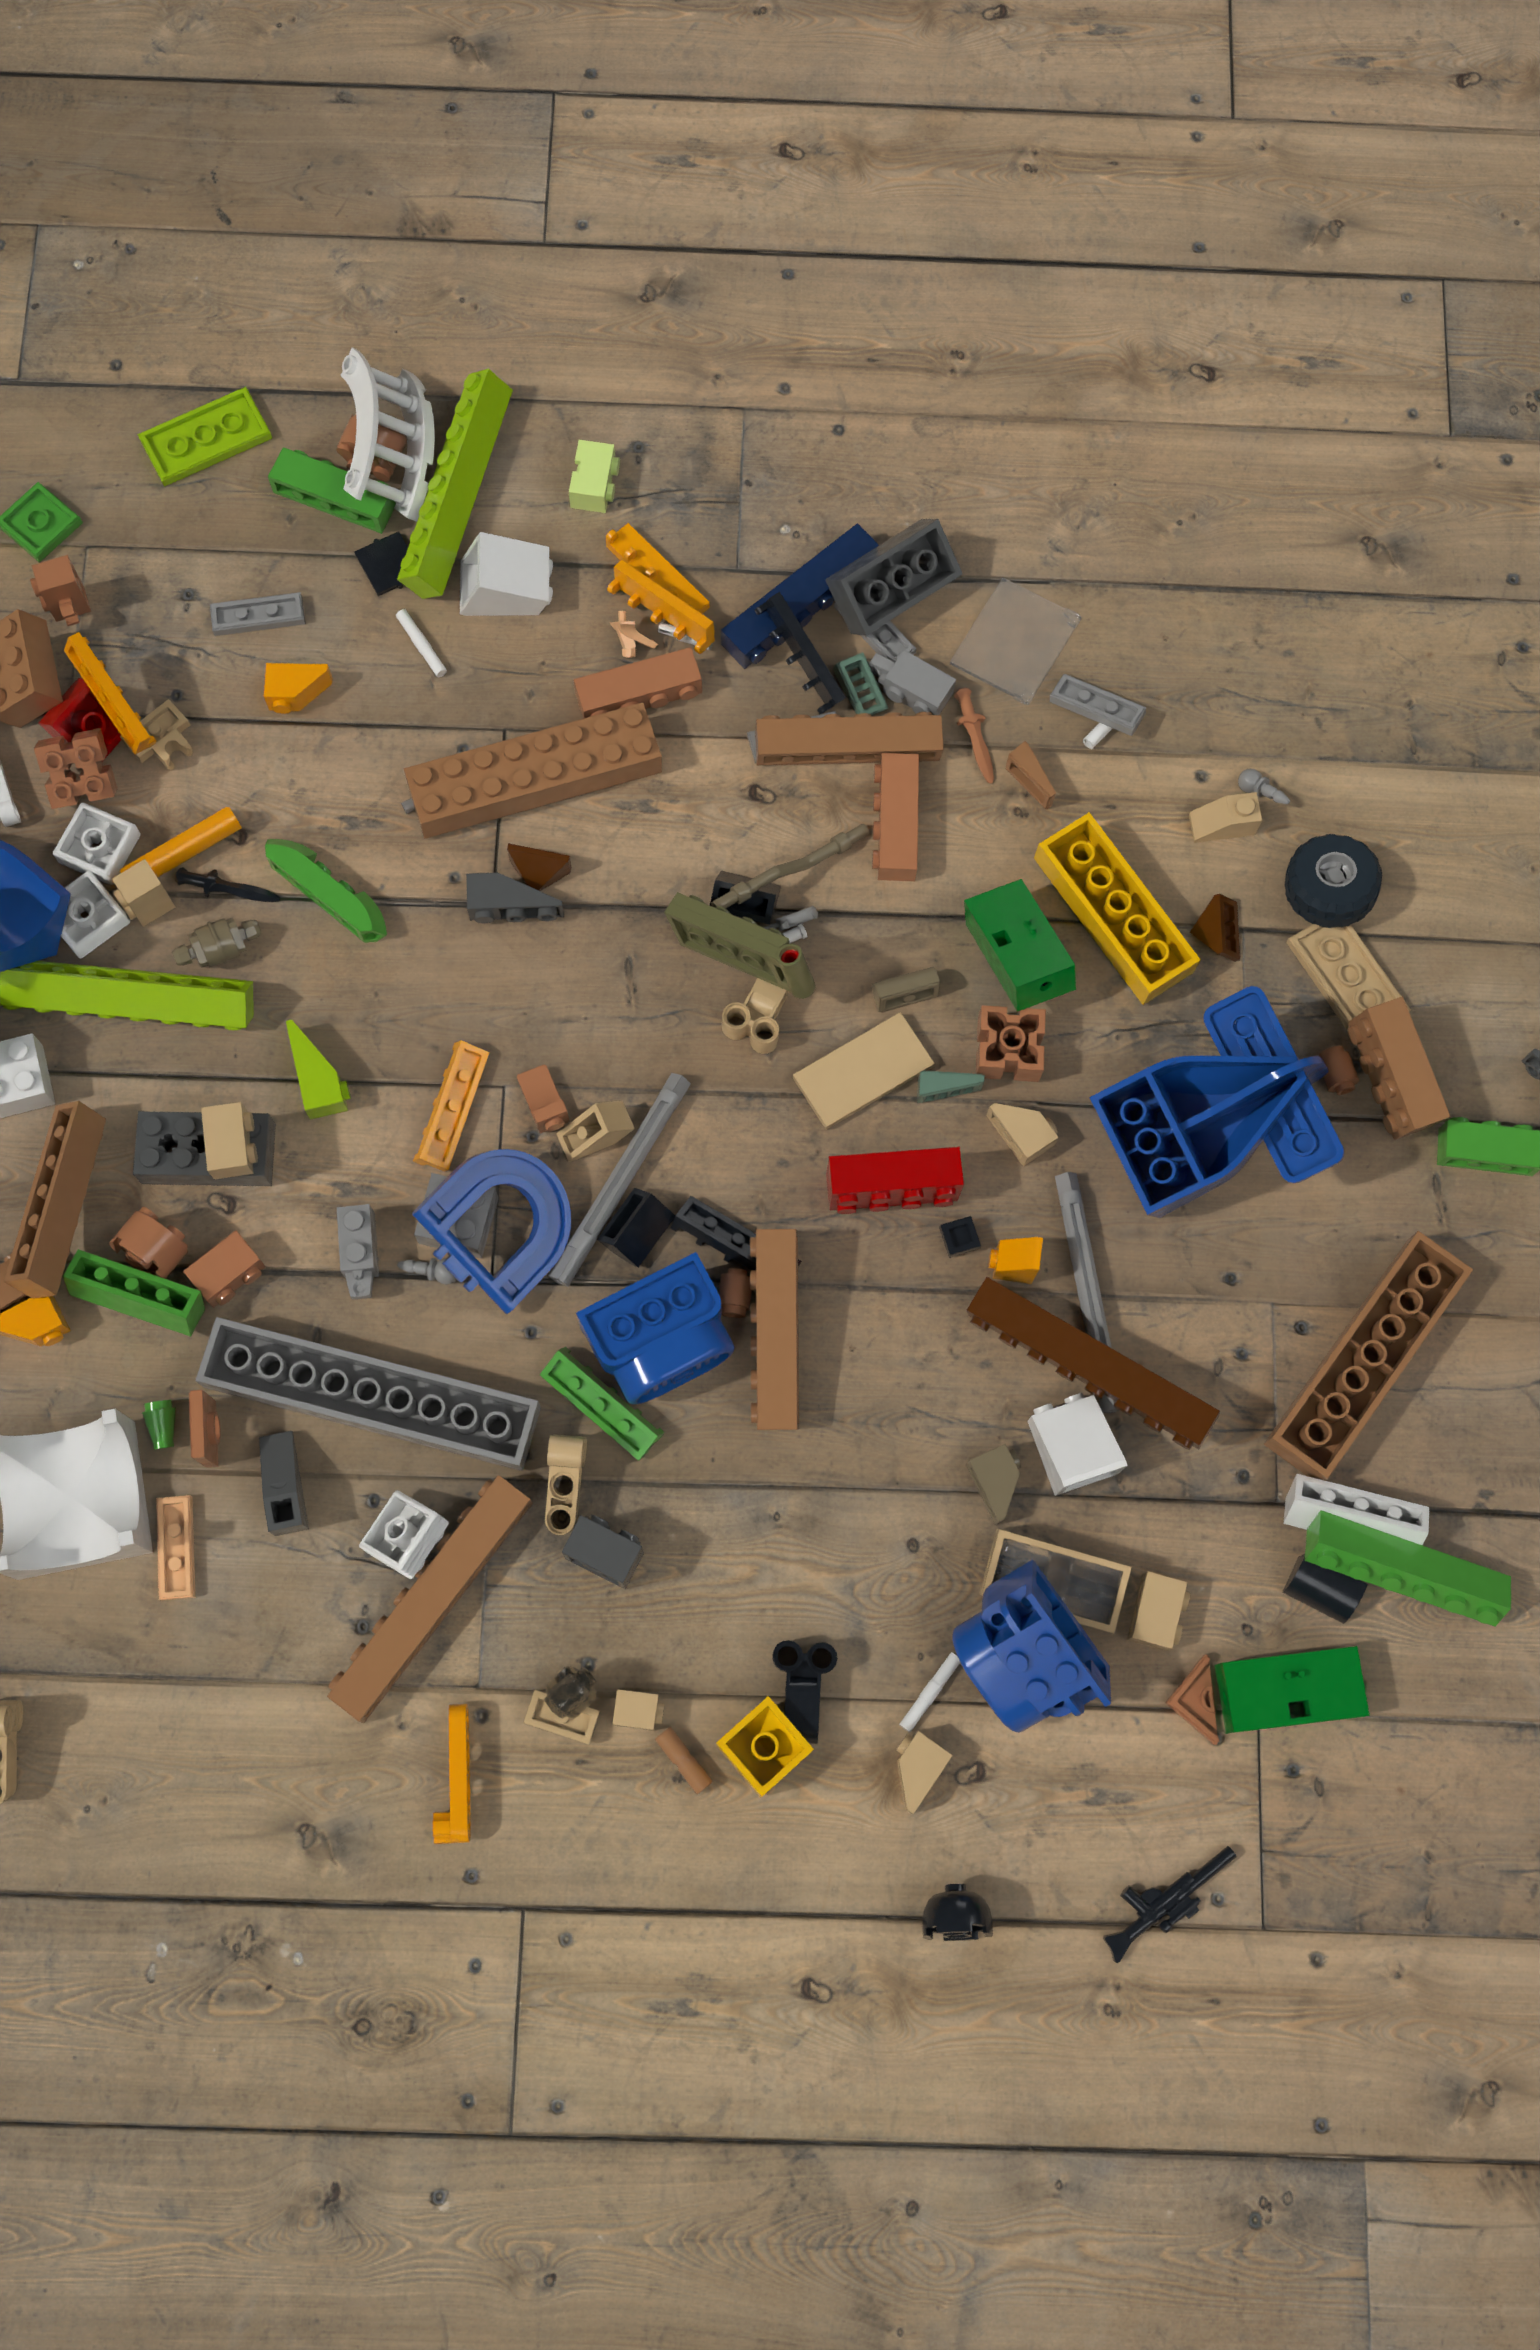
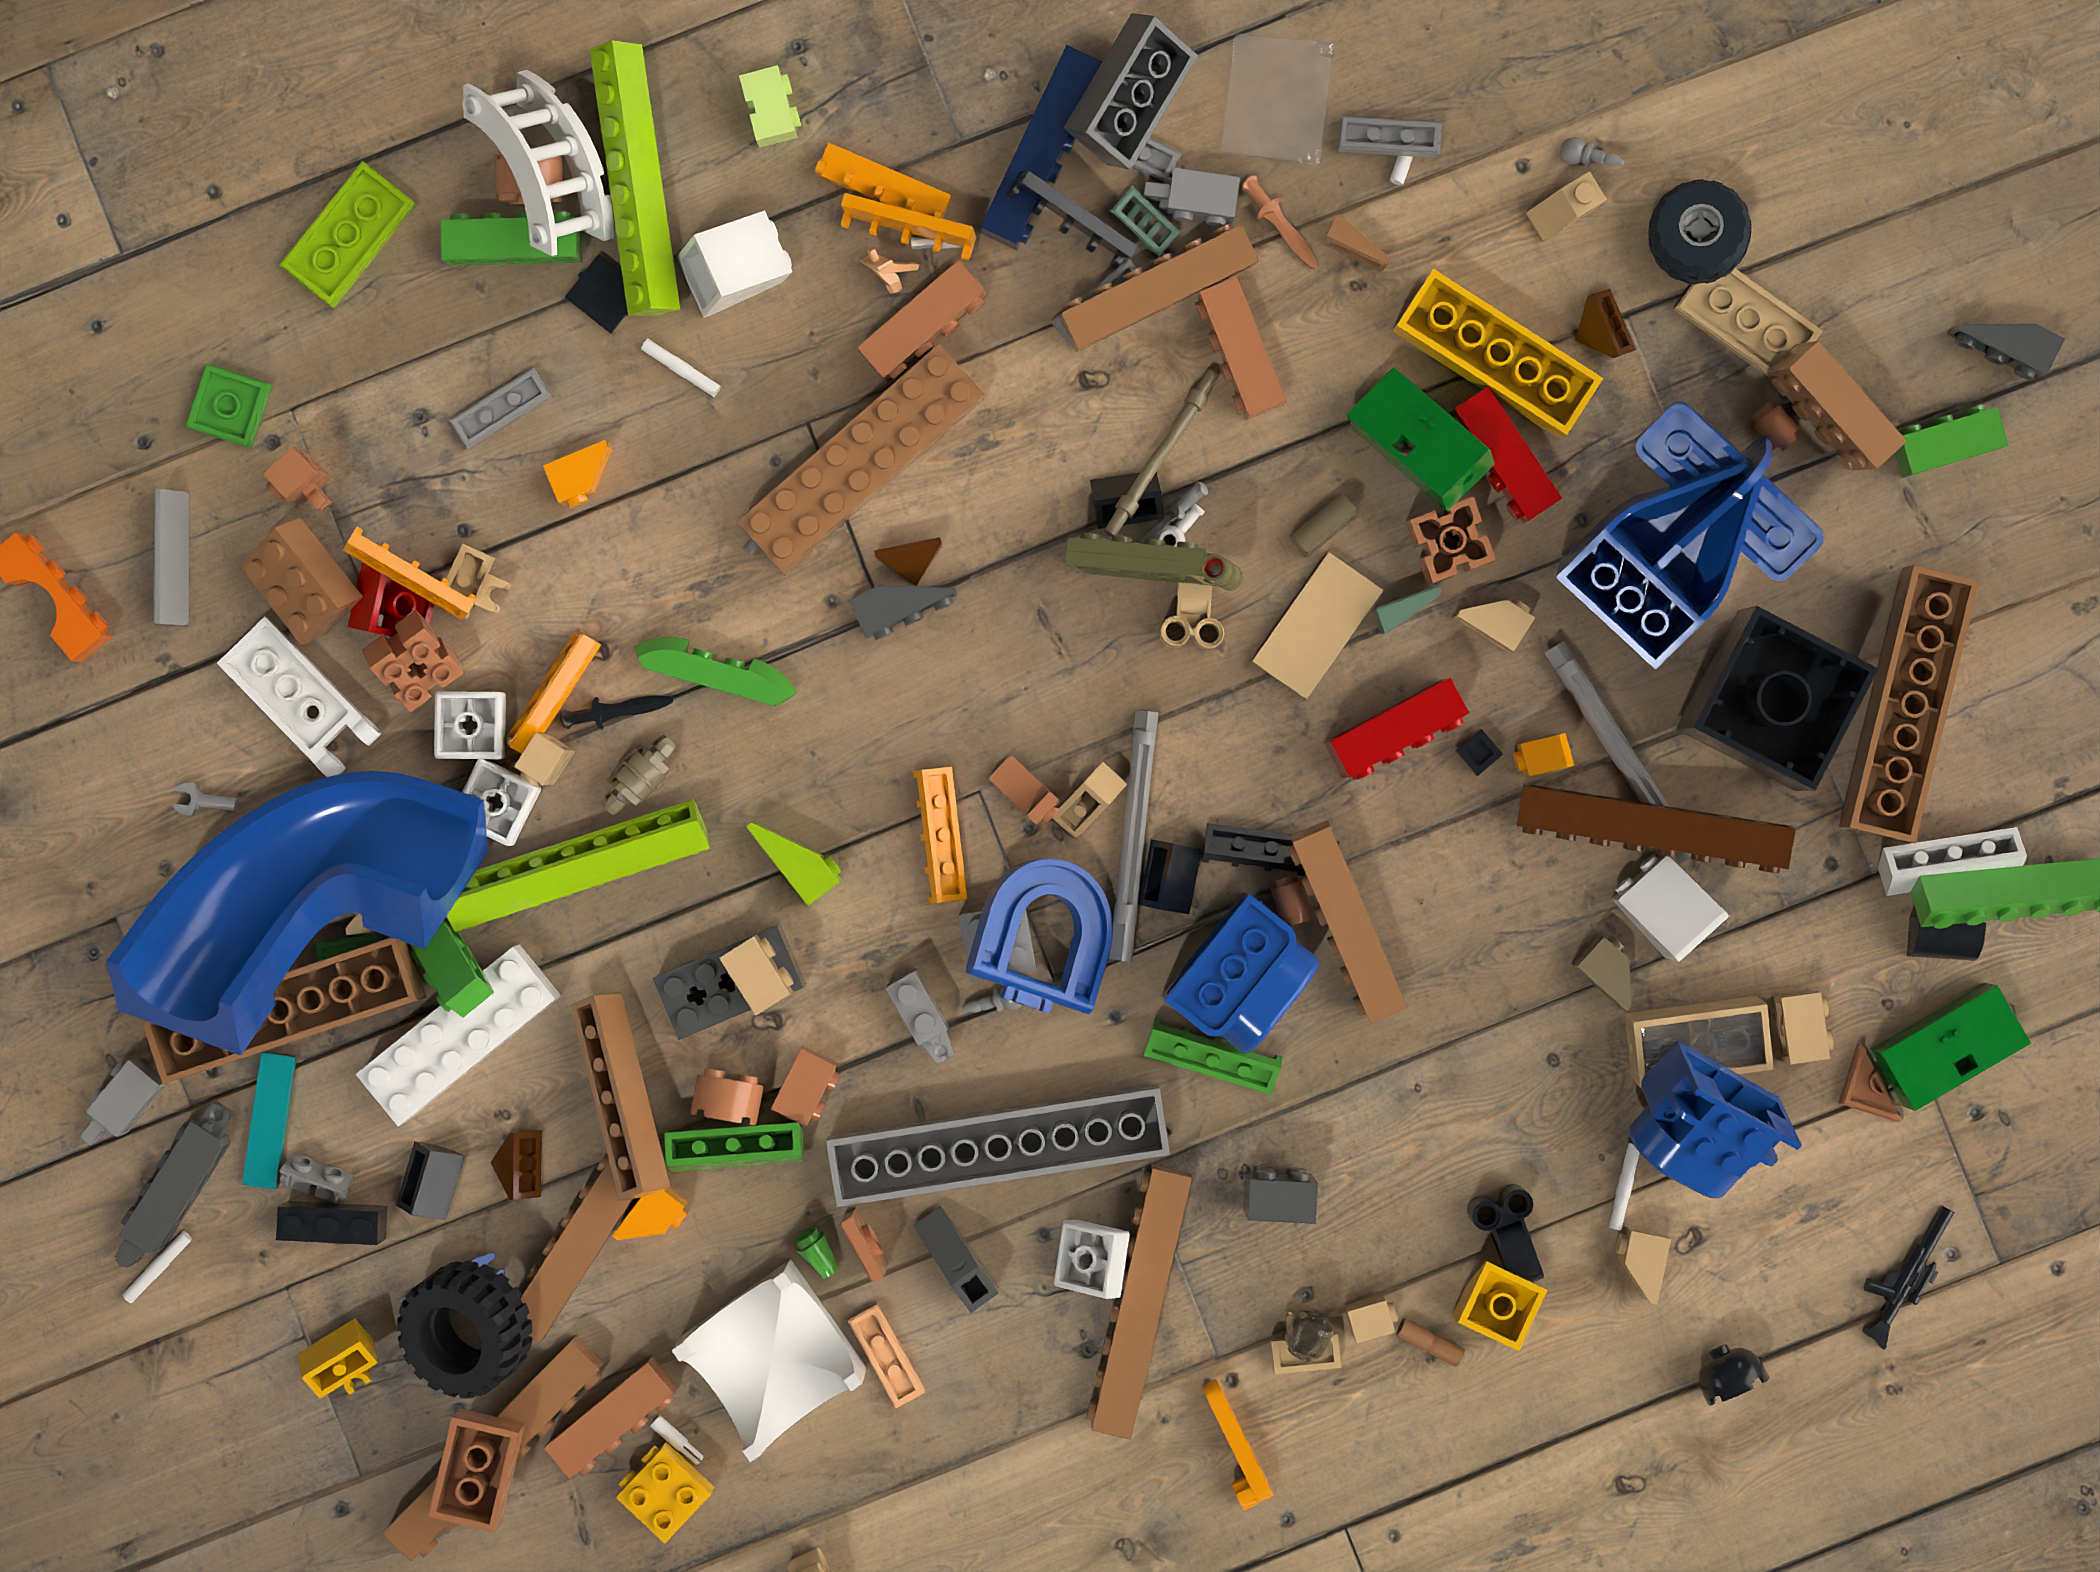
camera: 20 degrees left, 15 degrees up
(564, 1457) = (1210, 1129): tan piece -> none
(1092, 1003) = (1515, 466): none -> red brick
(1247, 1290) = (1777, 699): none -> black brick

